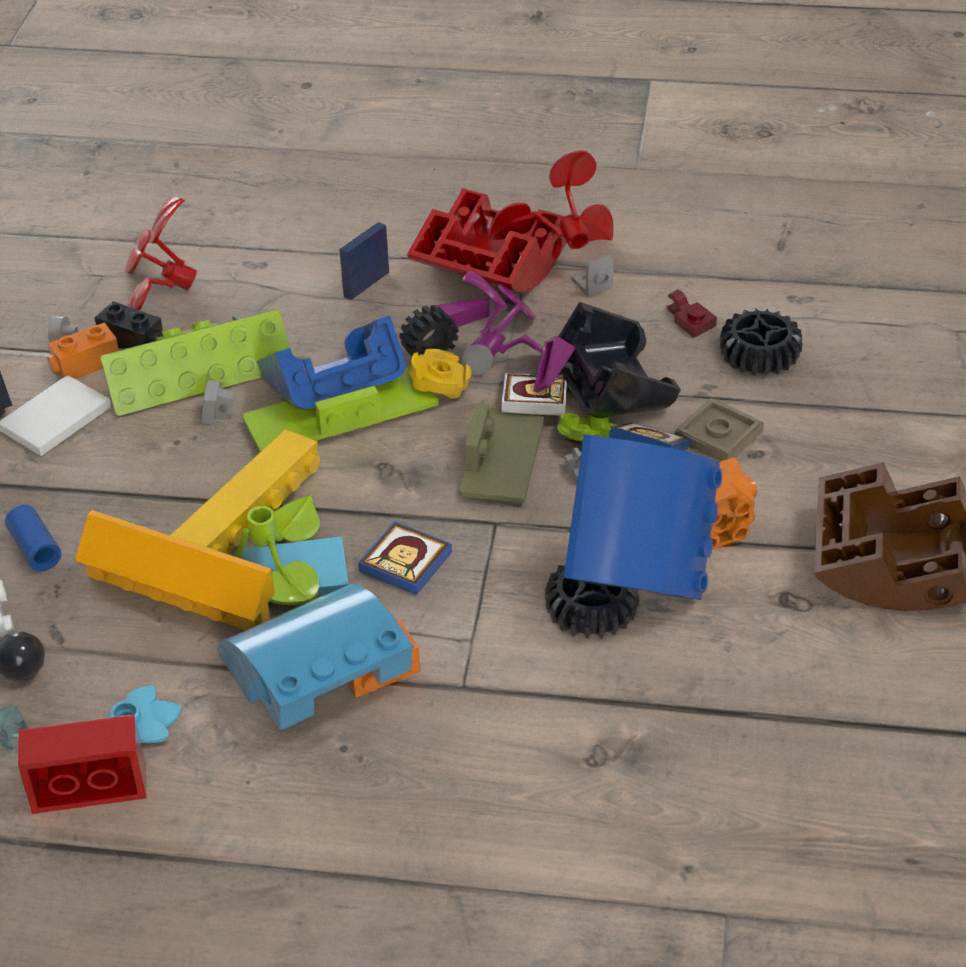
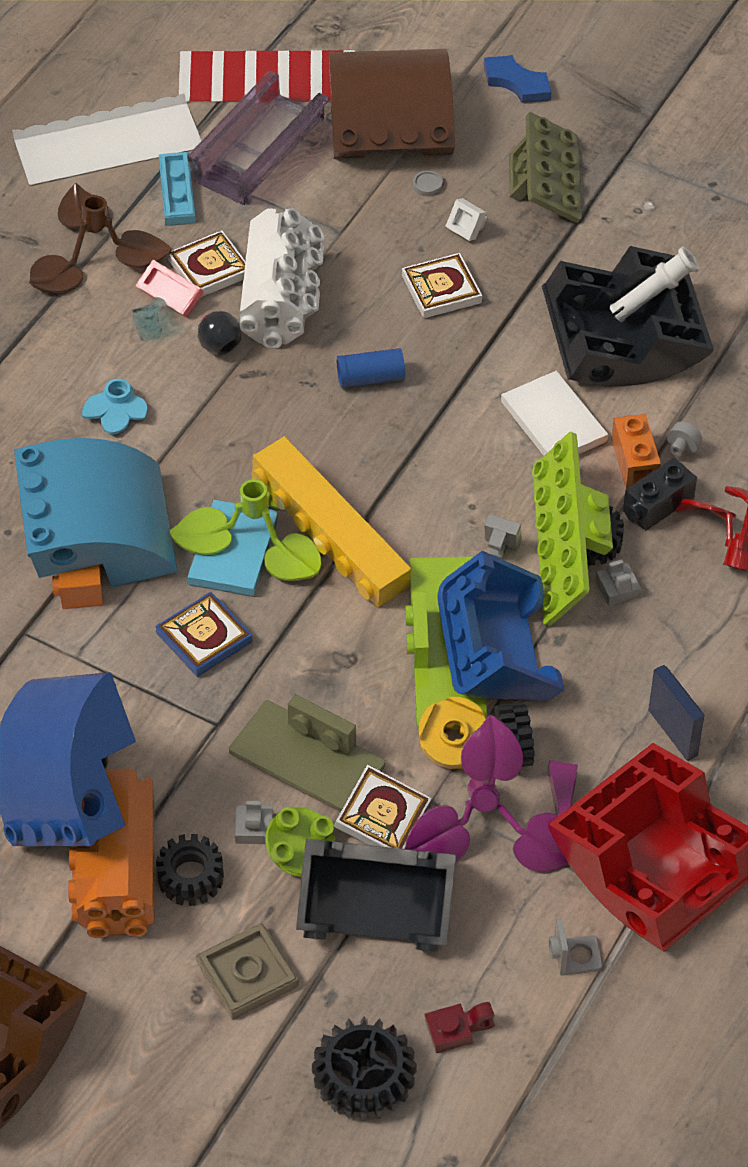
camera: 110 degrees right, 10 degrees up
(82, 764) = (64, 344): red brick -> none
(175, 571) = (228, 462): light orange slope -> none
(478, 358) = (461, 783): light grey piece -> none
(553, 358) = (402, 825): magenta piece -> none
(593, 224) = (624, 915): red plant -> none
(644, 434) = (247, 880): tile -> none

